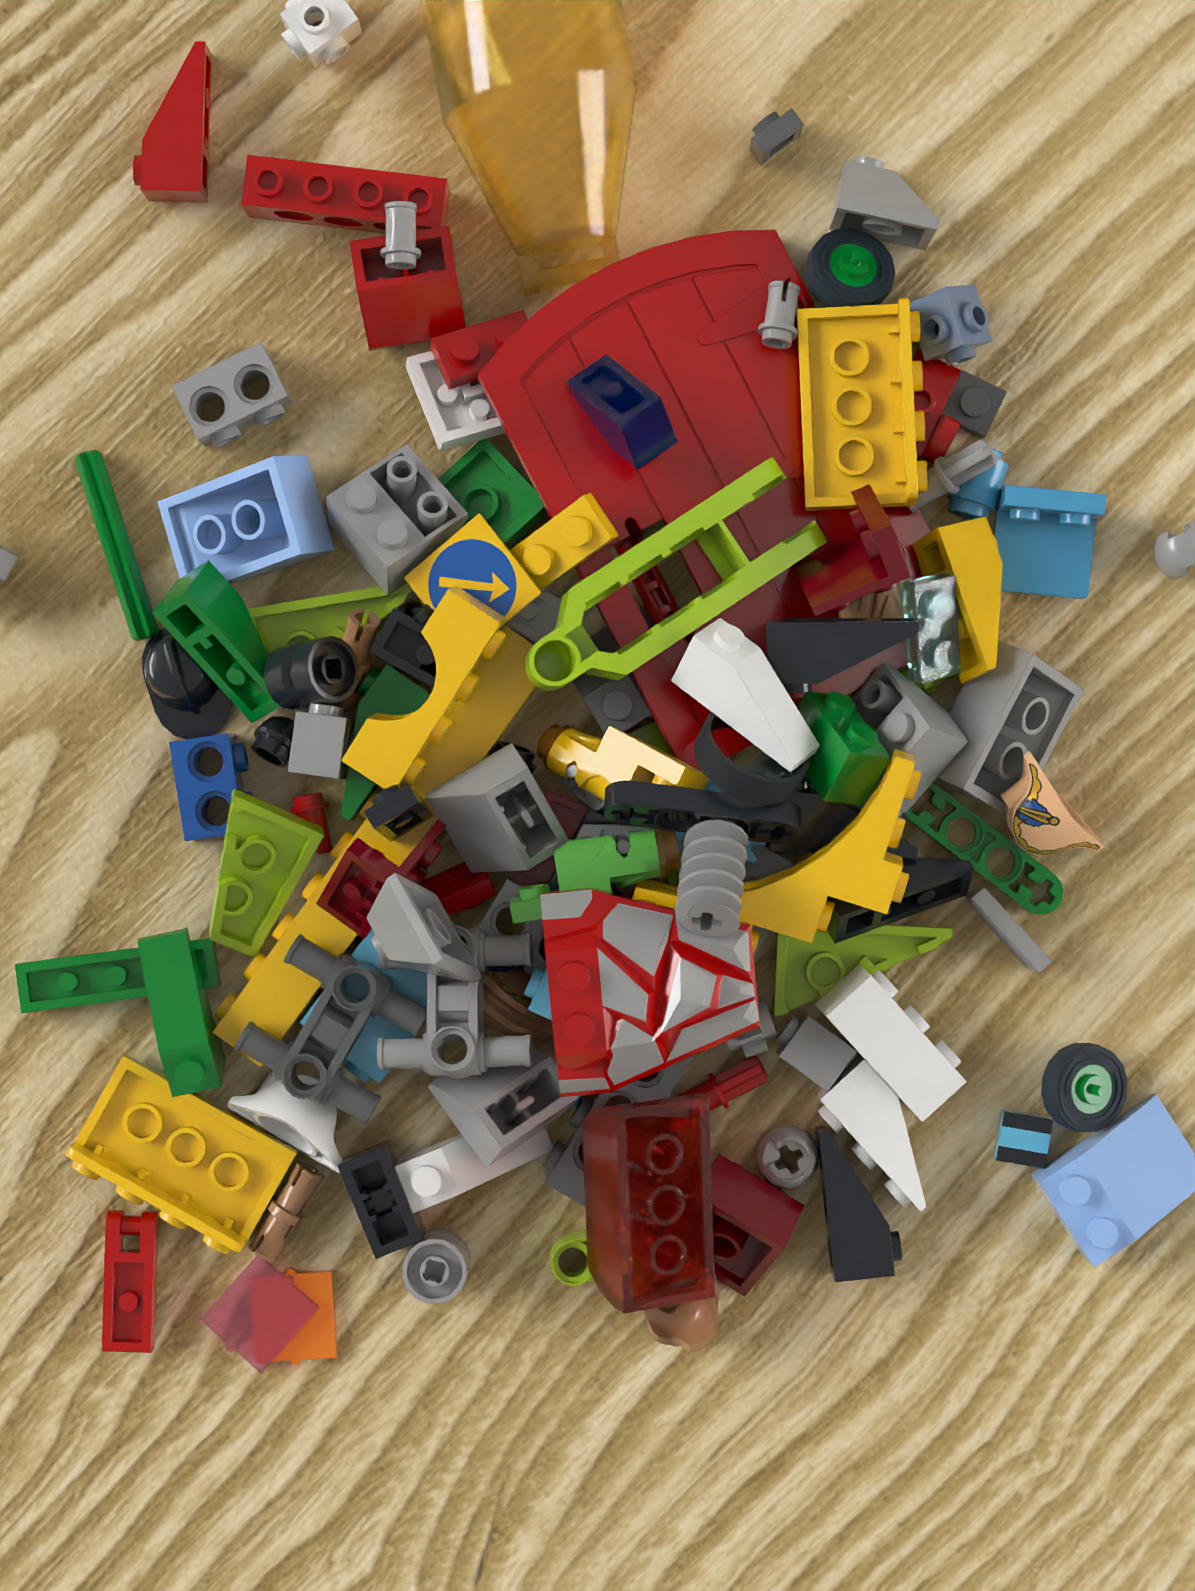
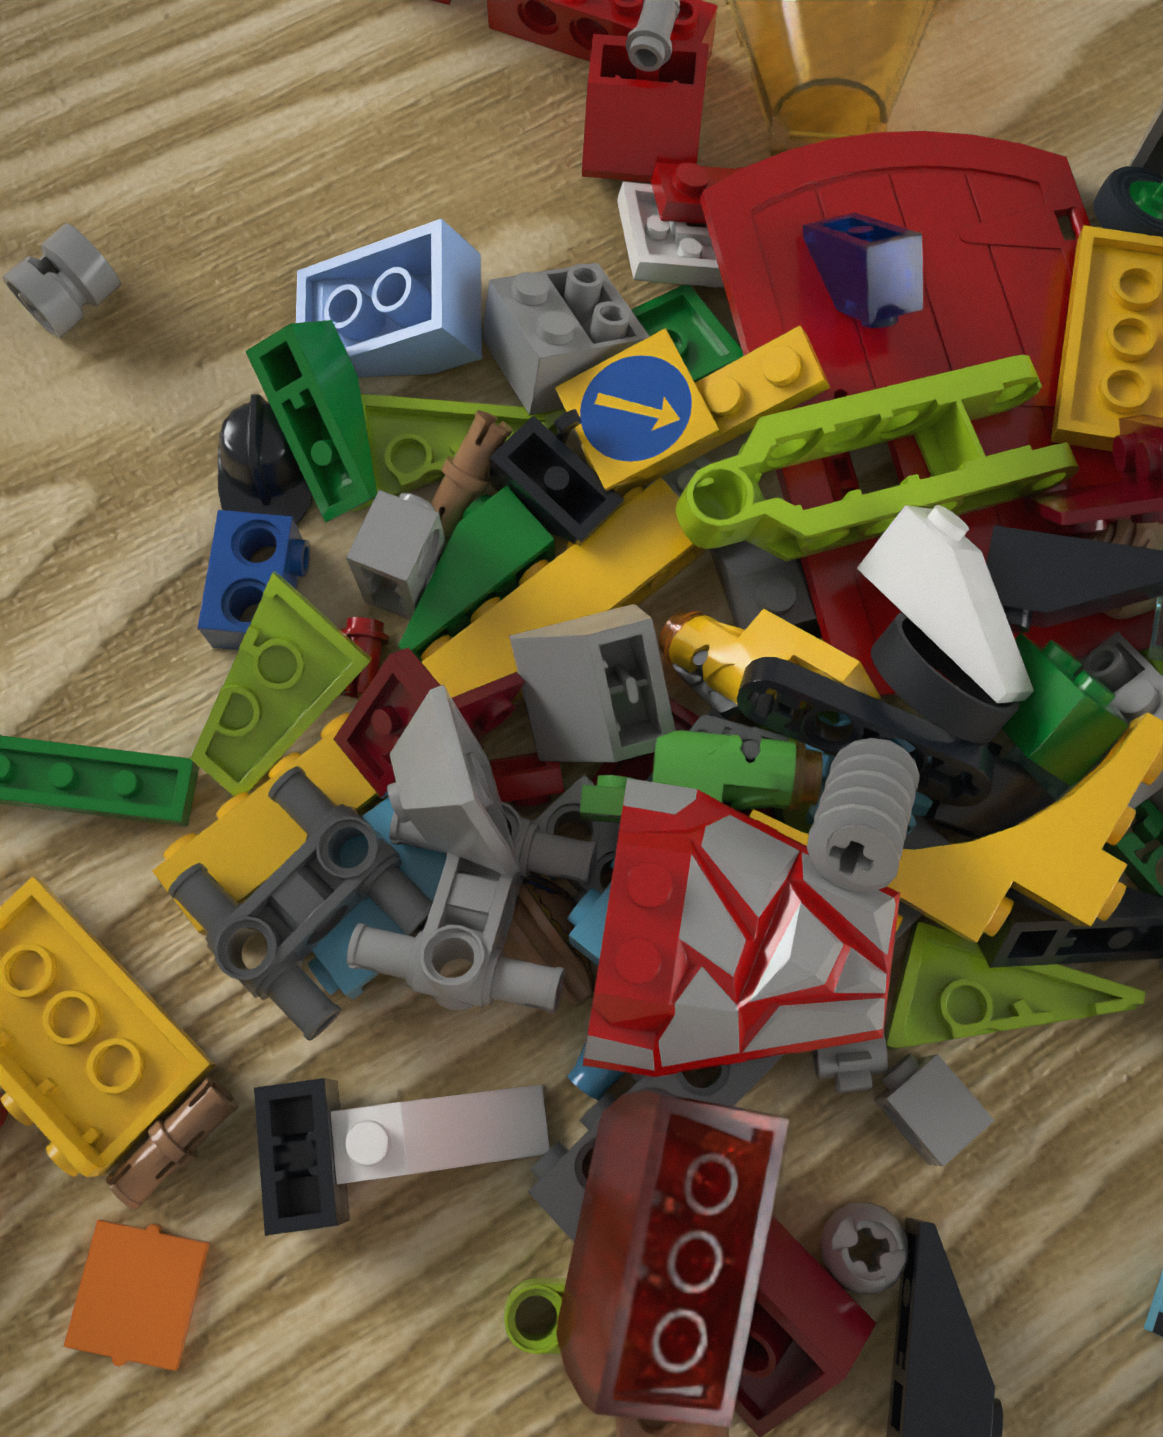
camera: 15 degrees right, 15 degrees down
(116, 545) = (235, 301): green axle -> none
(181, 1013) = (120, 839): green slope -> none
(228, 382) = (415, 166): light grey brick -> none
(259, 1313) = (91, 1277): clear pink piece -> none
(274, 740) = (334, 550): black plate -> none
(292, 1119) = (219, 1016): white hat -> none
(311, 672) = (417, 457): black wheel -> none
(397, 811) = (470, 638): black plate -> none
(436, 1266) = (346, 1273): light grey wheel -> none
(460, 636) = (609, 454): yellow arch -> none
(503, 1105) = (502, 1065): light grey slope -> none
(731, 1083) = (819, 1123): red axle -> none
(774, 134) = (1086, 65): dark grey plate -> none
(779, 320) = (1059, 237): light grey pin -> none
(875, 1119) = (999, 1235): white slope -> none
(892, 1040) = (1044, 1122): white brick -> none

